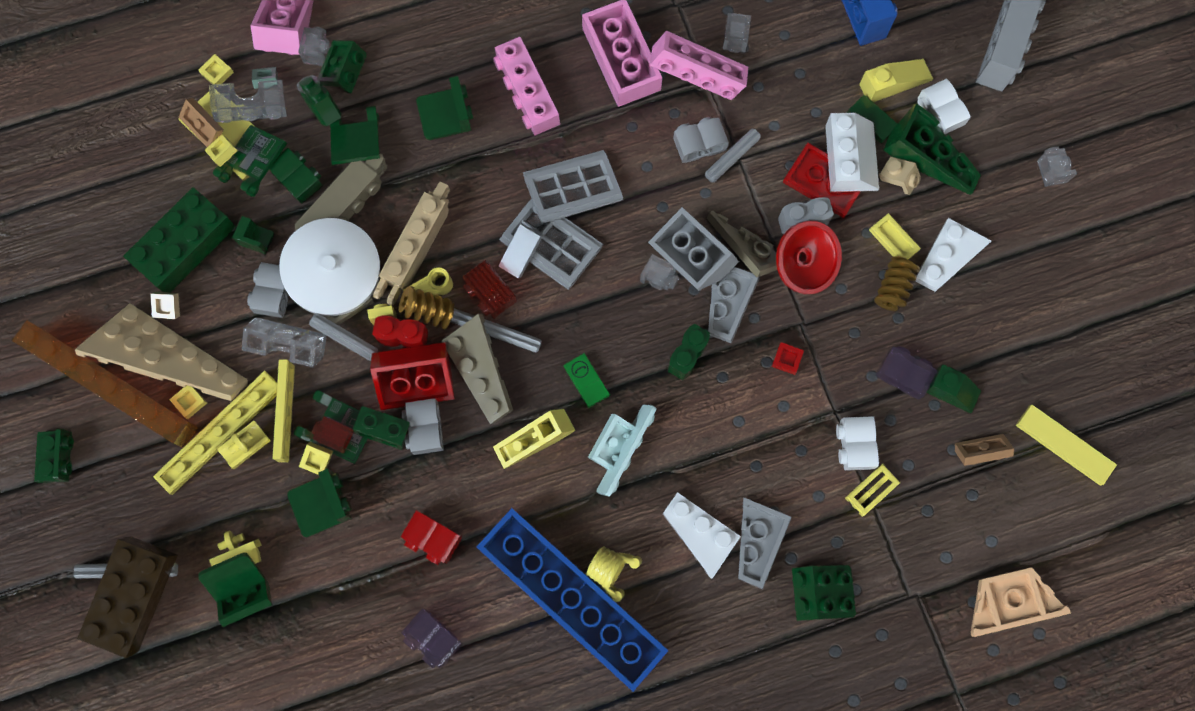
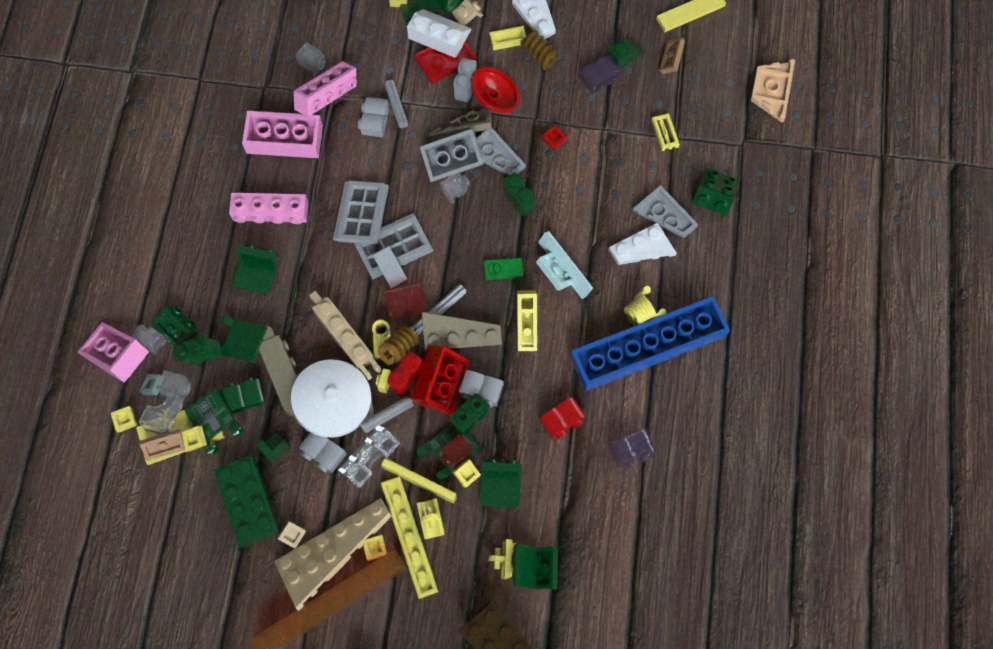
camera: 65 degrees left, 5 degrees down
(858, 443) = (632, 124): white brick -> none

